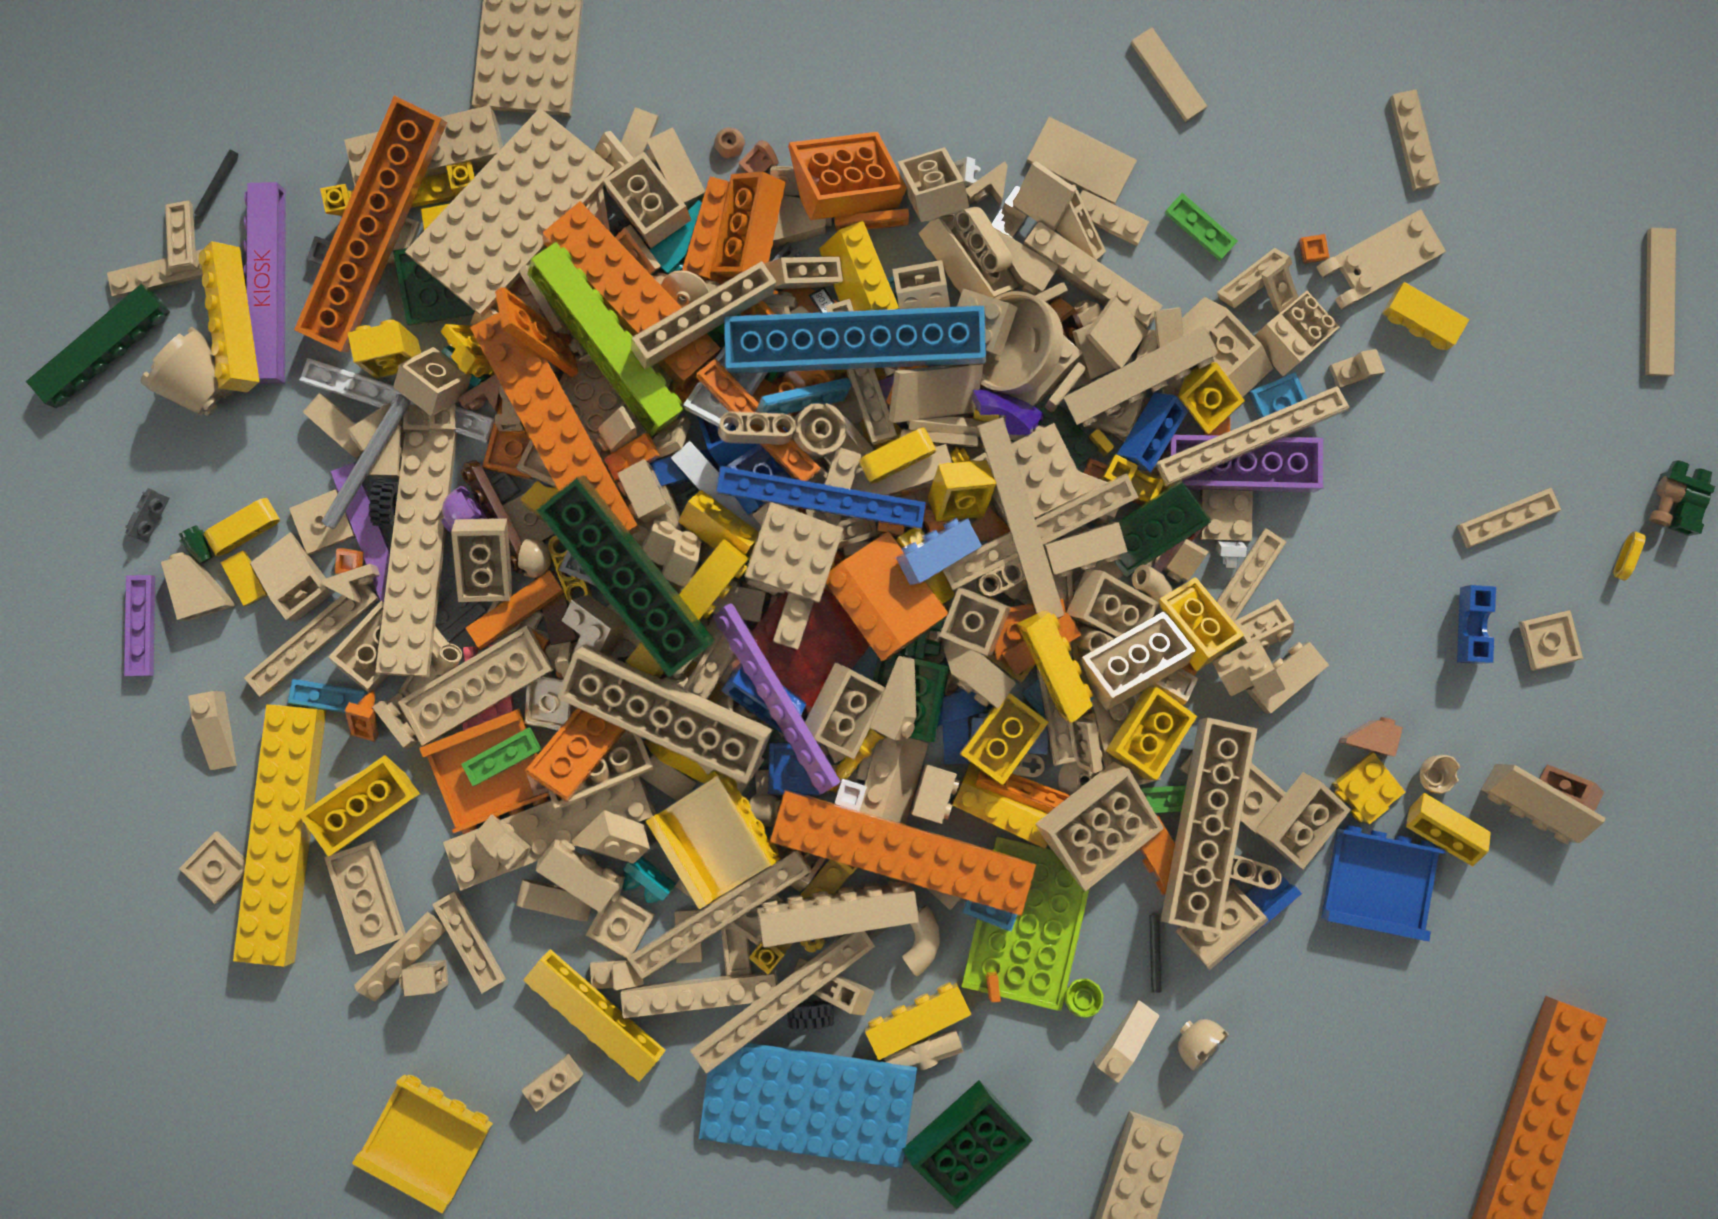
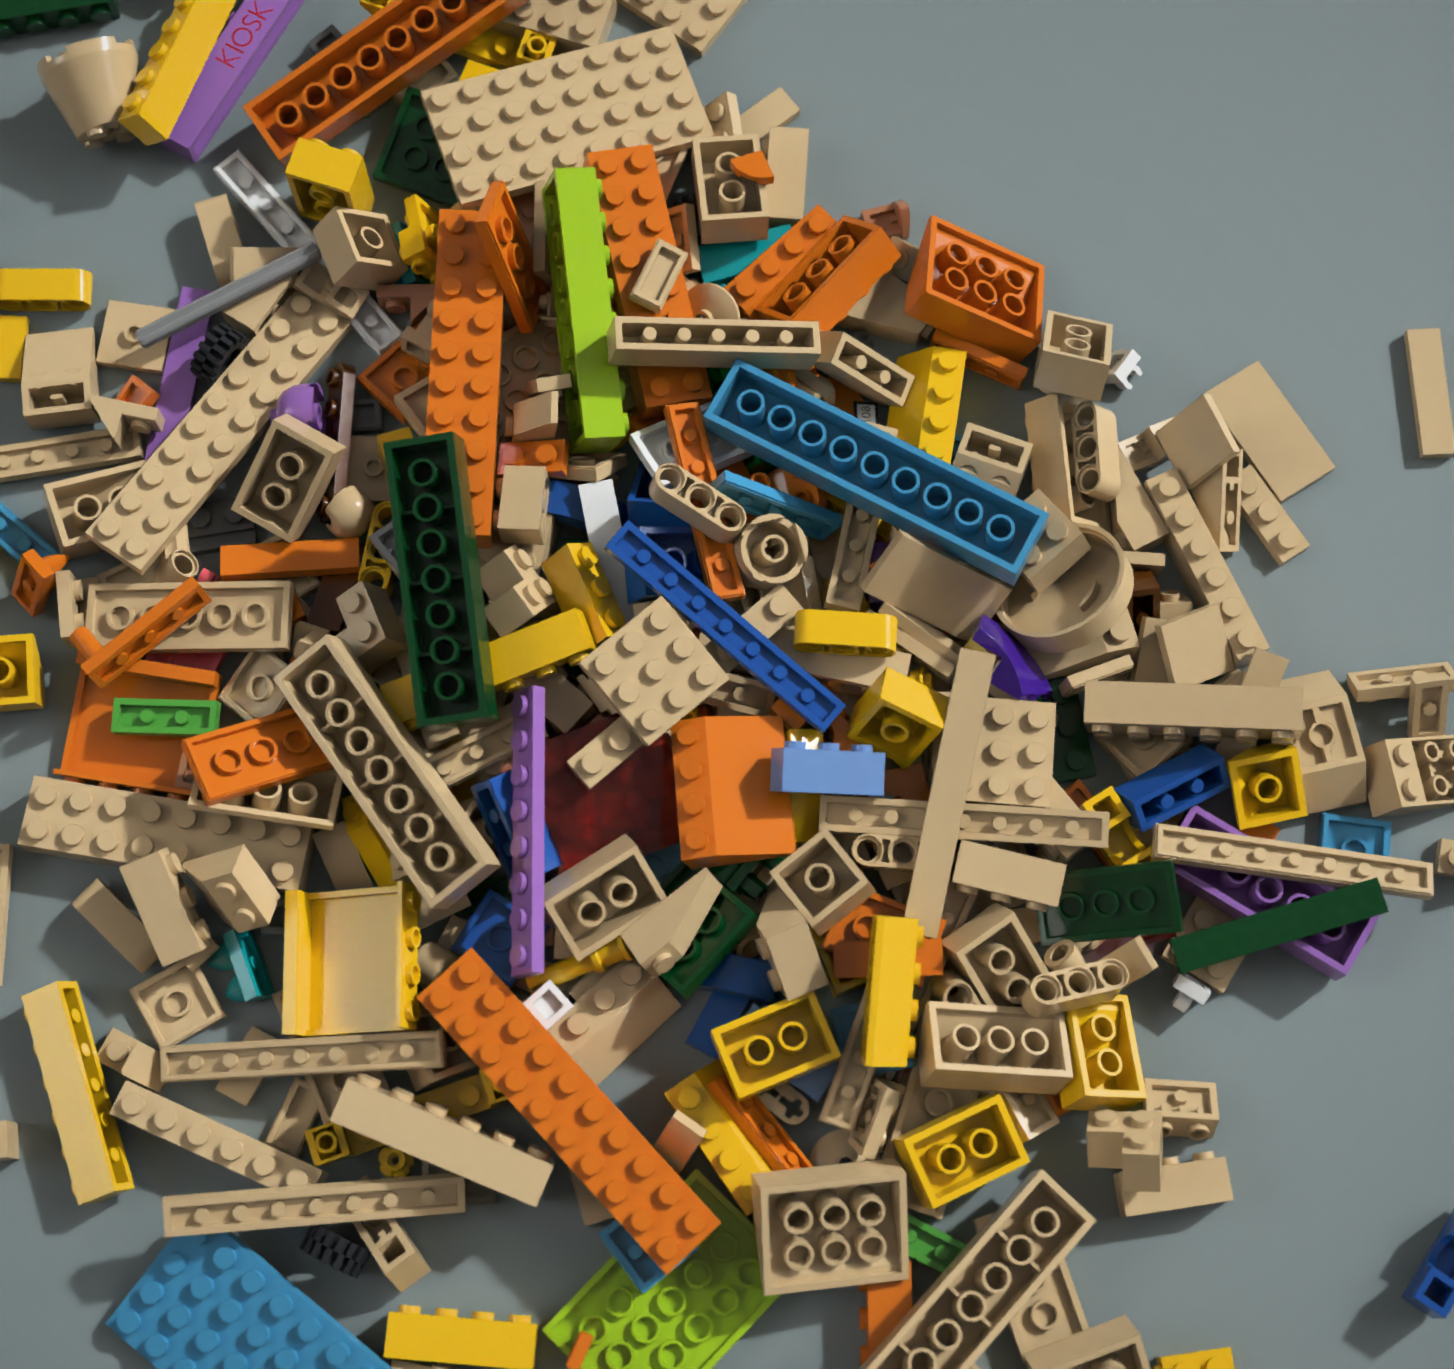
camera: 25 degrees right, 10 degrees down
(445, 745) = (110, 661): none -> orange piece
(502, 842) = (102, 814): tan slope -> none
(612, 402) = (551, 383): none -> tan plate
(639, 289) = (658, 276): none -> tan tile
(655, 178) = (753, 167): none -> orange tile
(734, 148) = (864, 193): medium nougat plate -> none
(926, 942) = (531, 1247): tan cylinder -> none
(934, 794) = (651, 1066): tan brick -> none
(978, 828) = (679, 1141): none -> tan slope
(992, 182) = (1145, 395): tan slope -> none
(1101, 442) = (1103, 767): yellow tile -> none
(1169, 584) = (1086, 977): none -> tan beam
(1200, 226) = (1370, 586): bright green plate -> none
(1250, 573) = (1199, 1033): tan tile -> none
(1266, 481) = (1278, 925): none -> dark green tile
(1375, 736) = (1243, 1328): nougat slope -> none

